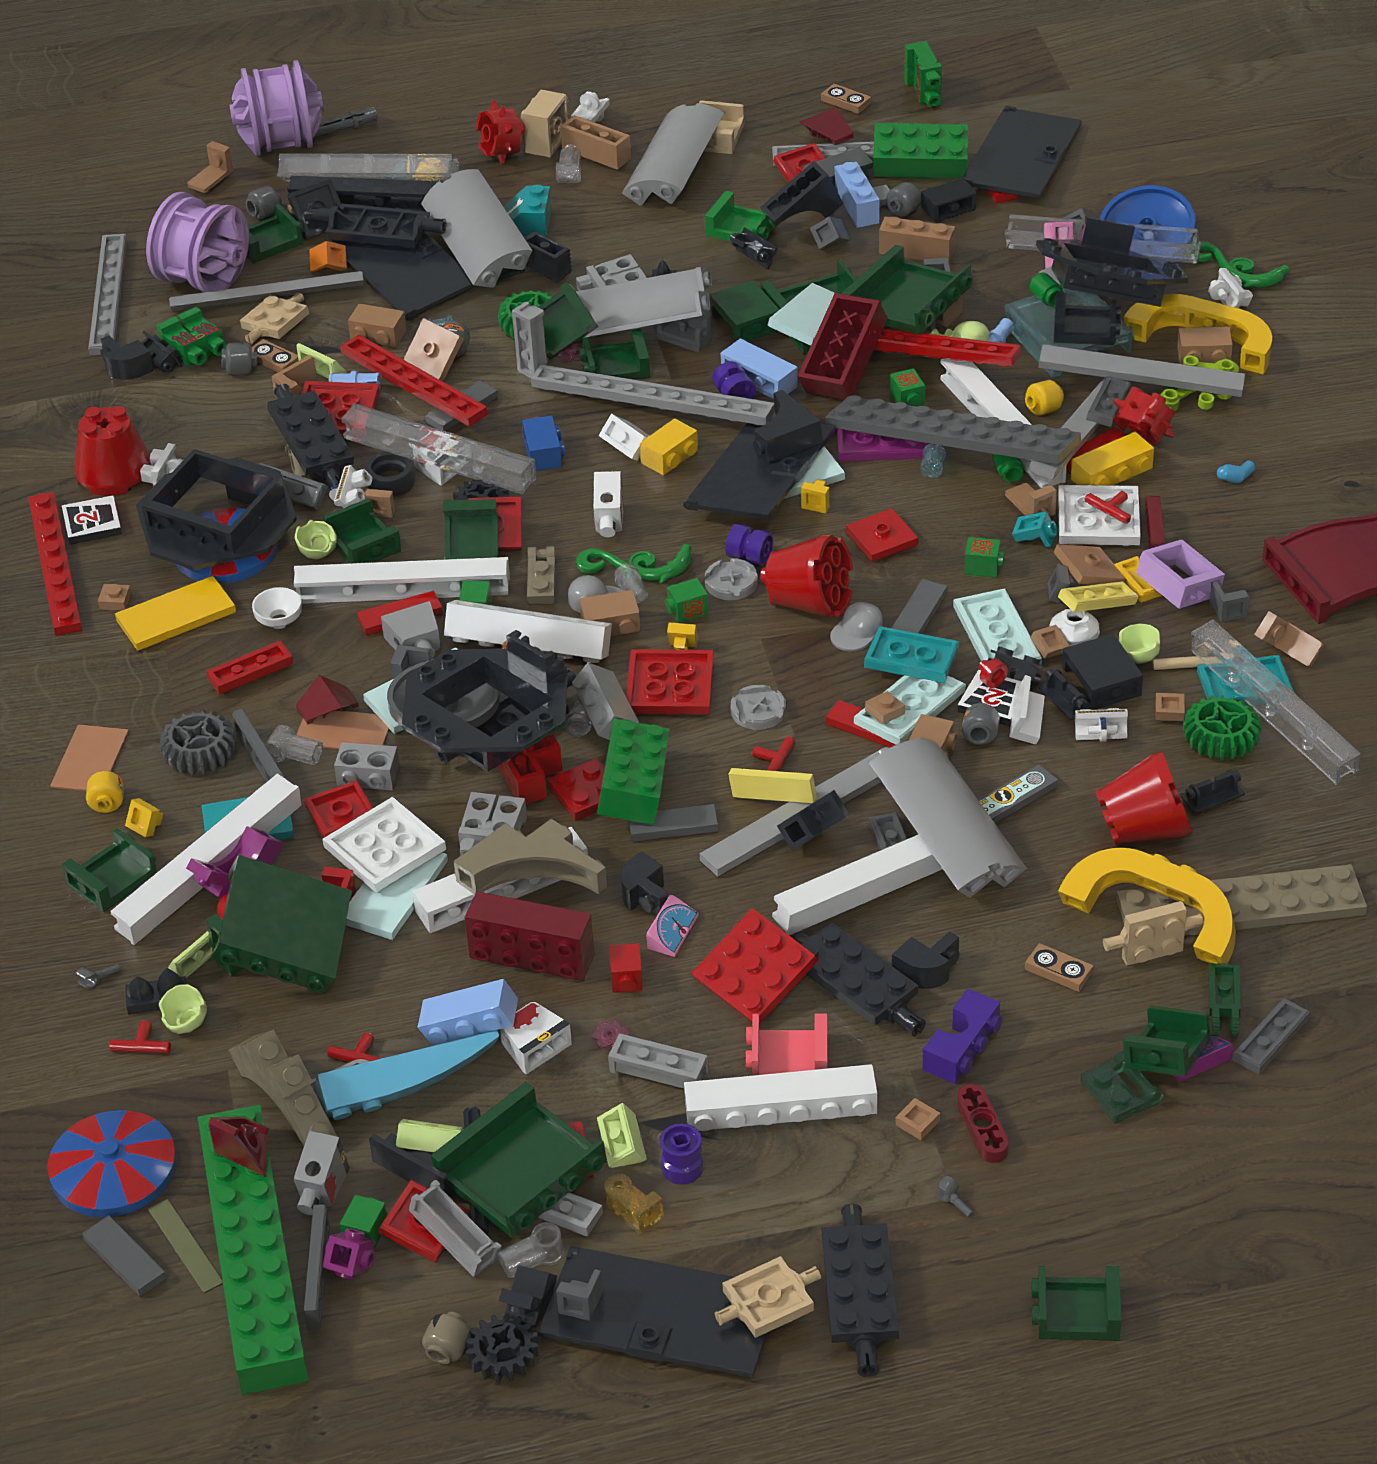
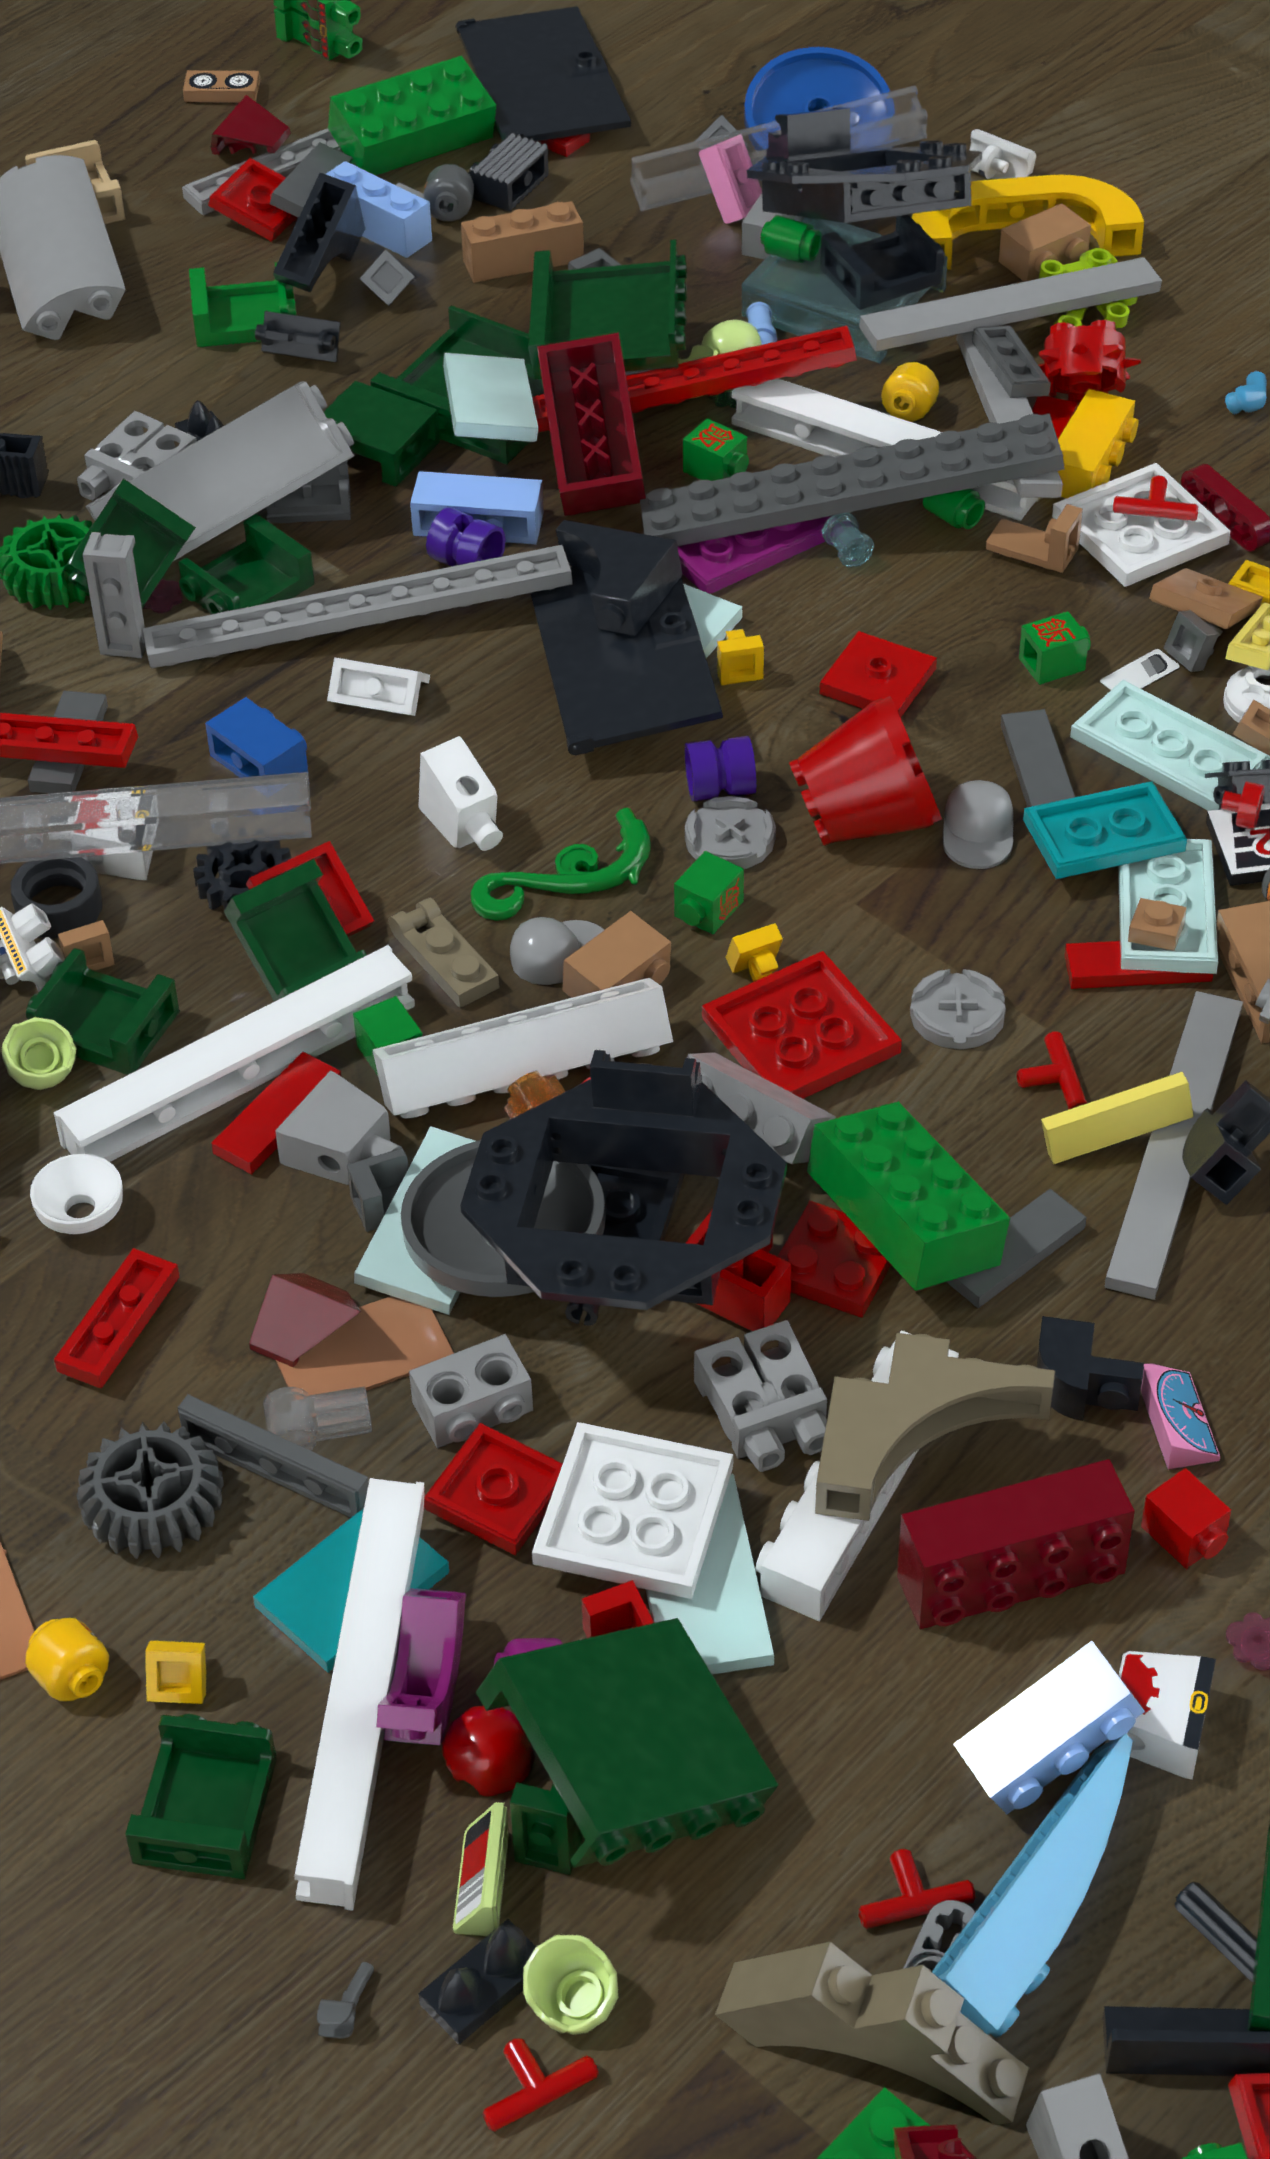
camera: 35 degrees left, 5 degrees up
(424, 1135) = (1170, 1976): yellowish green slope -> none
(628, 578) = (594, 902): clear cone -> none
(669, 446) = (457, 673): yellow brick -> none
(1028, 590) = (1142, 671): none -> white sticker
(1035, 526) = (1078, 576): teal bracket -> none
(1246, 267) = (1017, 133): green plant -> none

